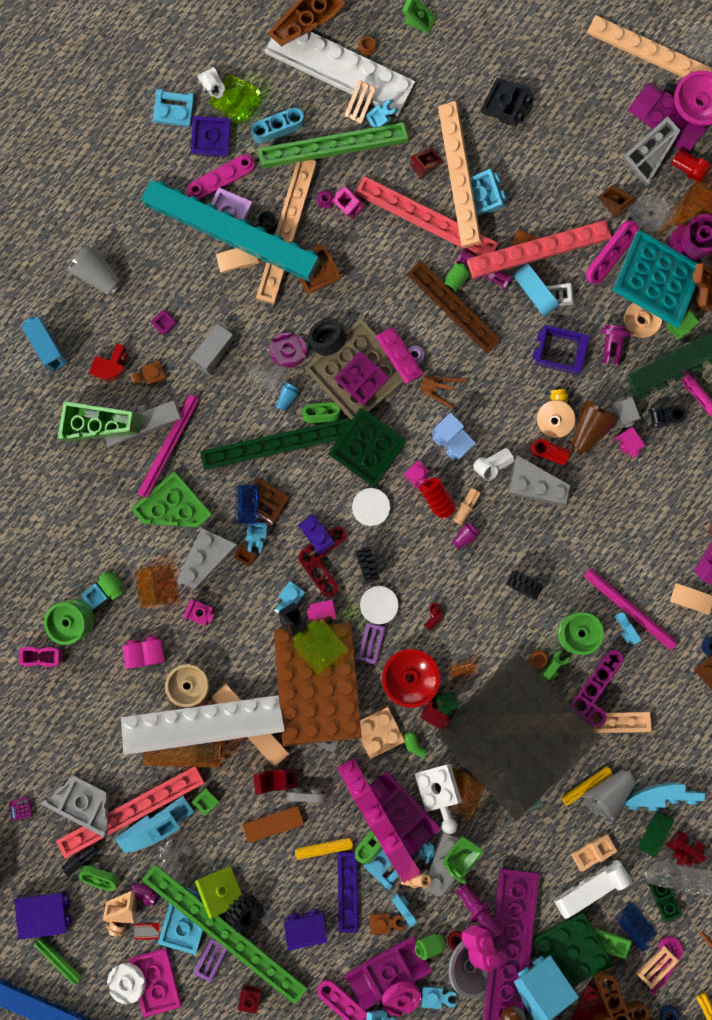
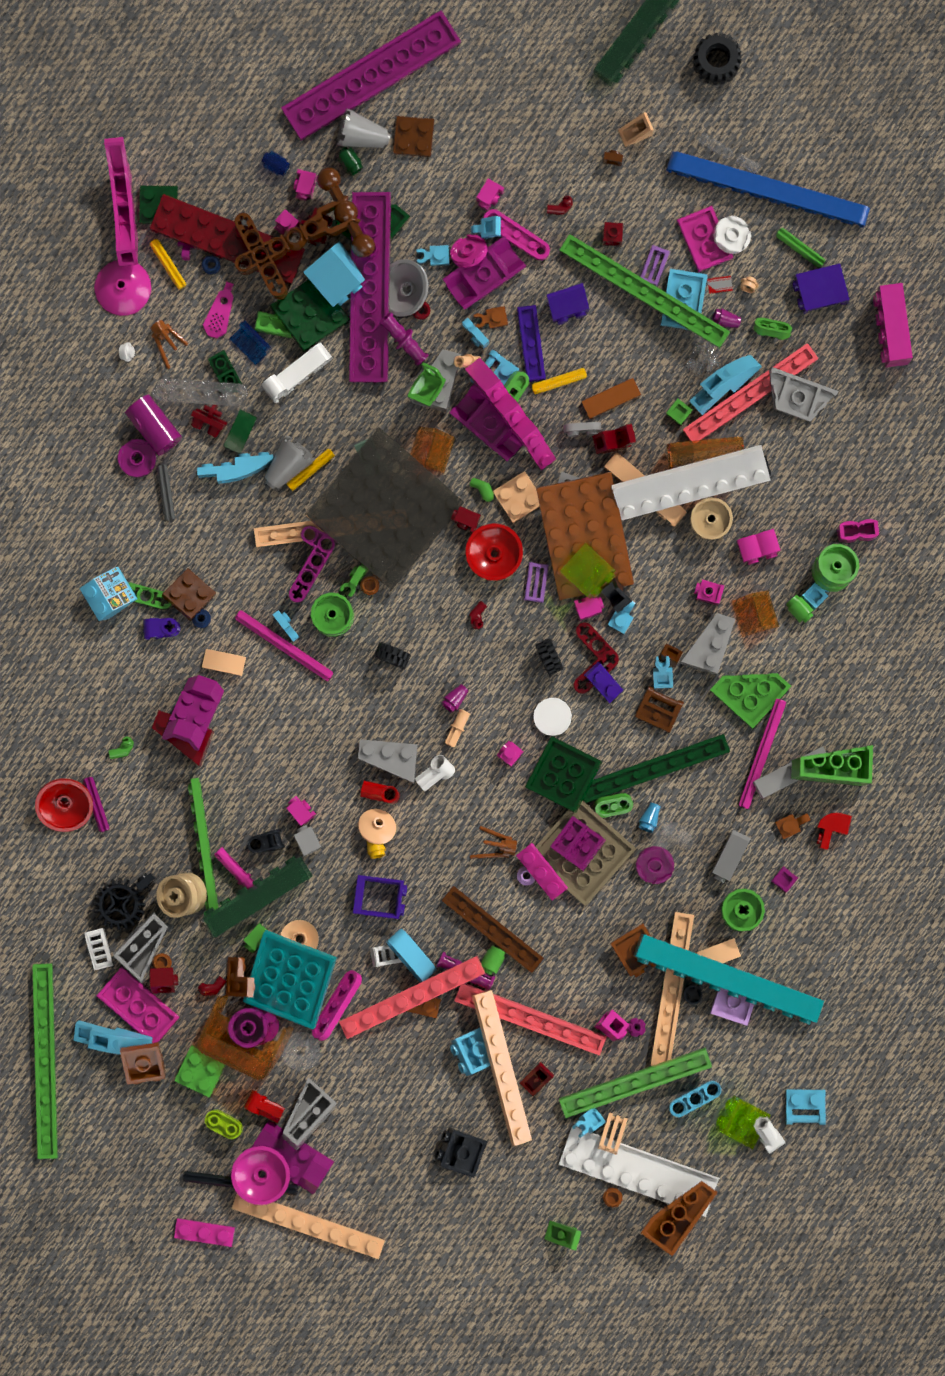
camera: 175 degrees left, 0 degrees up
(20, 808) = (857, 384): magenta tile -> none
(44, 343) = (900, 840): dark azure brick -> none
(80, 860) = (792, 343): black axle -> none
(94, 270) = (860, 922): light grey cone -> none
(121, 909) = (747, 302): light nougat slope -> none
(204, 285) = (750, 901): none -> bright green wheel
(210, 136) = (762, 1079): dark purple plate -> none
(218, 891) = (654, 329): lime plate -> none
(221, 177) = (746, 1038): dark pink plate -> none
(244, 913) = (628, 312): black tyre -> none
(245, 504) = (677, 703): clear blue panel -> none
(332, 345) = (606, 875): black tyre -> none
(379, 605) = (533, 620): white tile -> none
(426, 852) = (459, 388): medium azure plate -> none
(430, 946) = (447, 302): bright green brick -> none
(434, 800) = (459, 439): white plate -> none
(437, 497) = (487, 731): red piece -> none
(446, 702) = (457, 532): dark green slope -> none
(452, 437) = (479, 794): light blue brick -> none
(461, 669) = (444, 567): clear orange pin -> none
(480, 948) = (399, 305): dark pink brick -> none
(592, 427) = (340, 821): reddish brown cone -> none
(594, 852) = (297, 407): light nougat slope -> none
(614, 334) = (326, 918): magenta piece -> none
(616, 200) = (338, 1061): reddish brown slope -> none
(652, 961) = (218, 320): light nougat tile -> none

